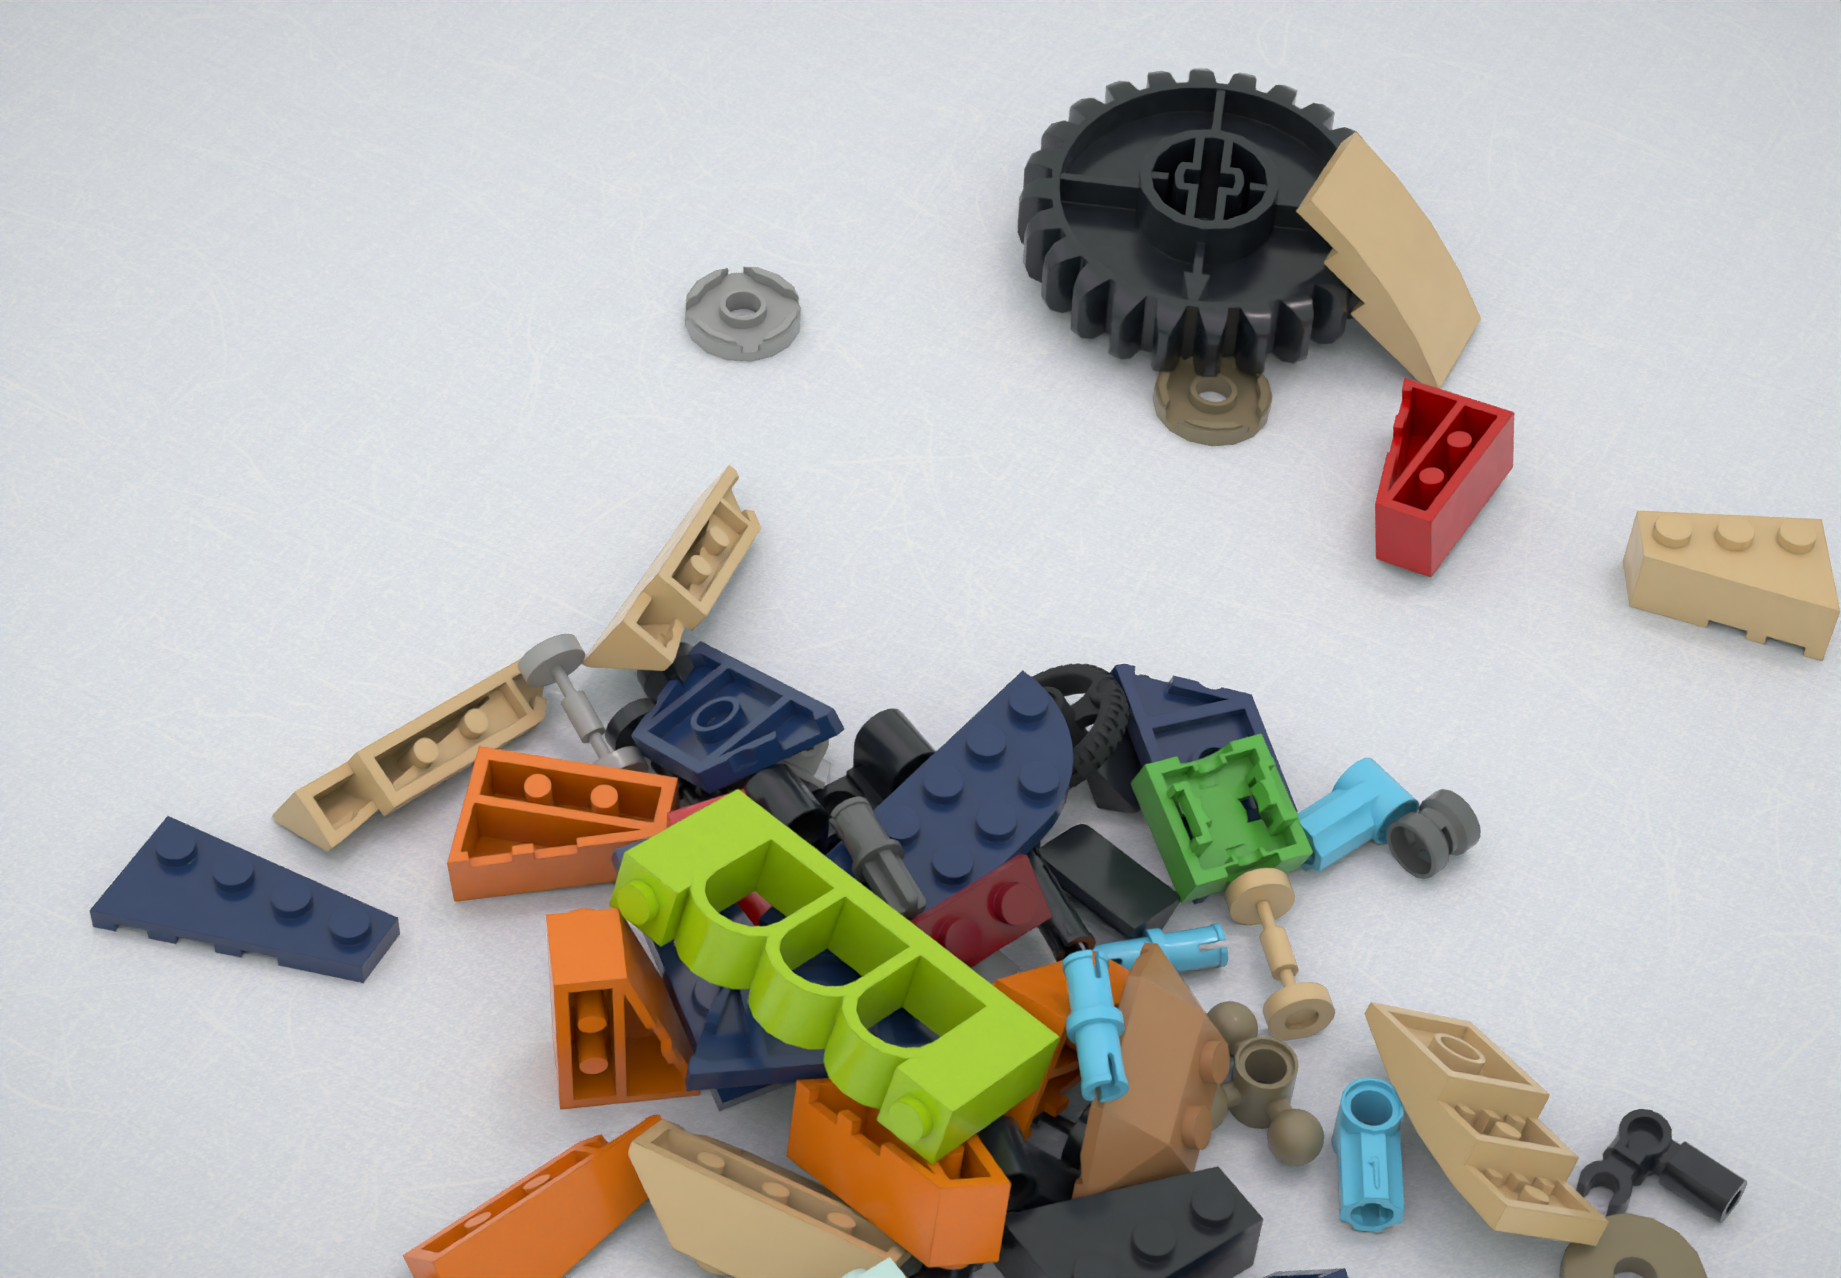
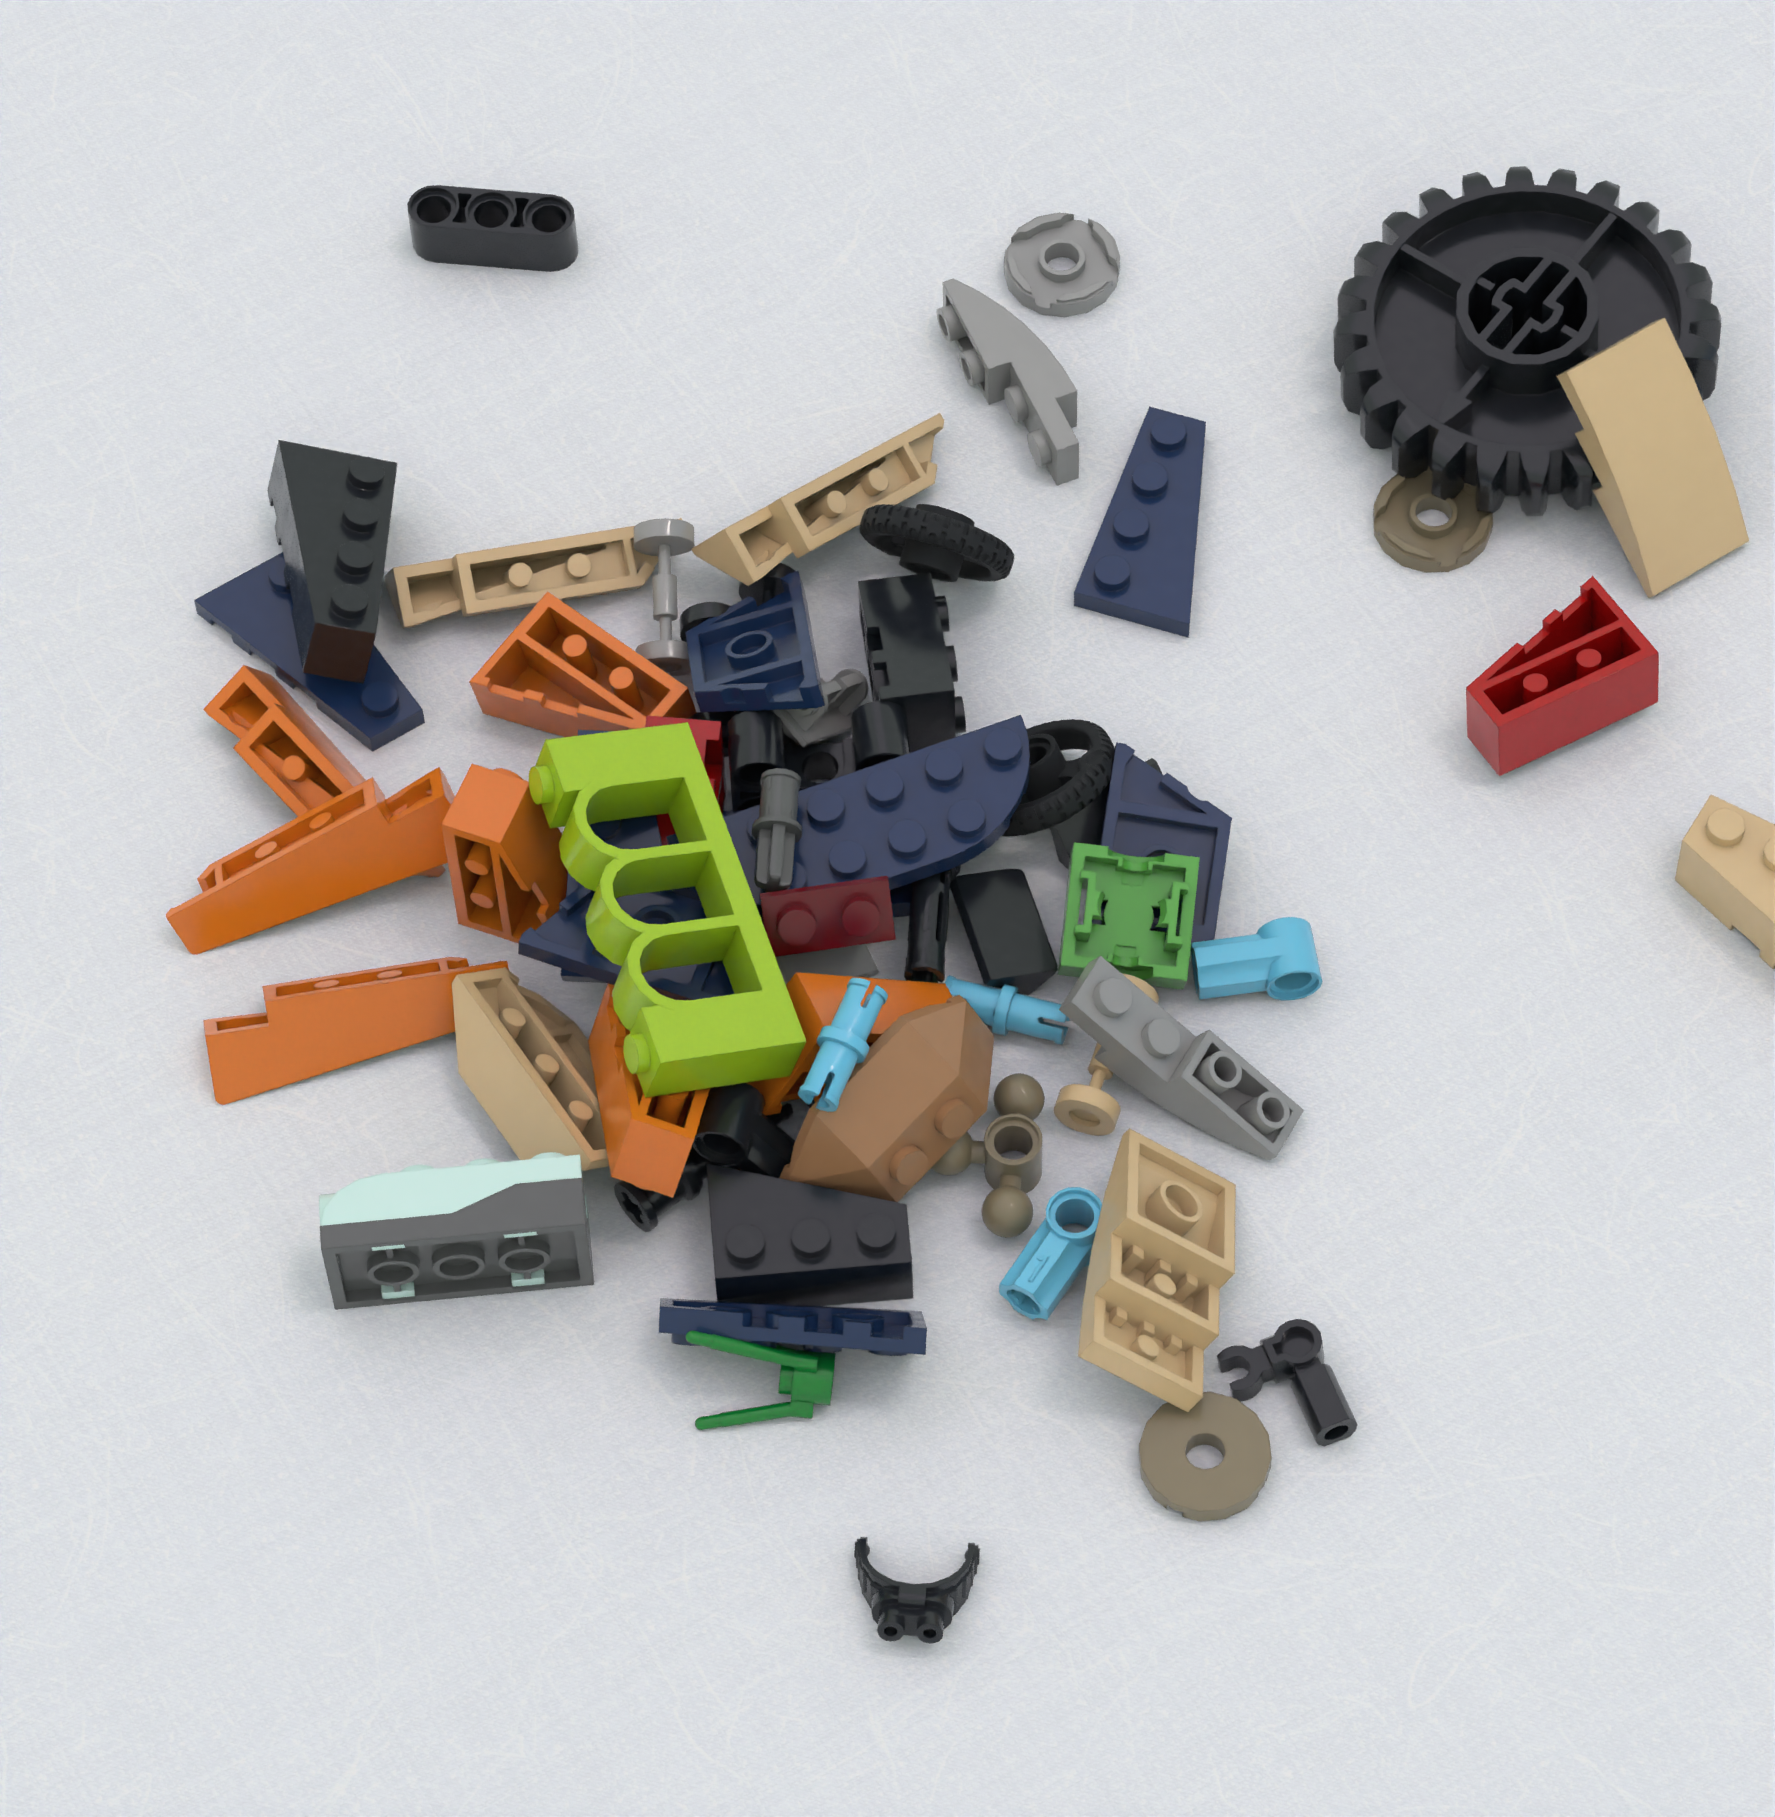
camera: 35 degrees right, 10 degrees up
(188, 464) = (493, 228): none -> black beam
(228, 800) = (334, 547): none -> black wedge
(332, 1030) = (284, 743): none -> orange wedge
(395, 1099) = (318, 861): none -> orange wedge
(767, 401) = (1016, 367): none -> light grey slope
(821, 565) = (936, 542): none -> black wheel
(853, 670) = (909, 656): none -> black wedge
(979, 498) = (1149, 534): none -> dark blue wing
(1363, 939) = (1183, 1073): none -> light grey slope
(1428, 838) = (1316, 1010): dark grey wheel -> none

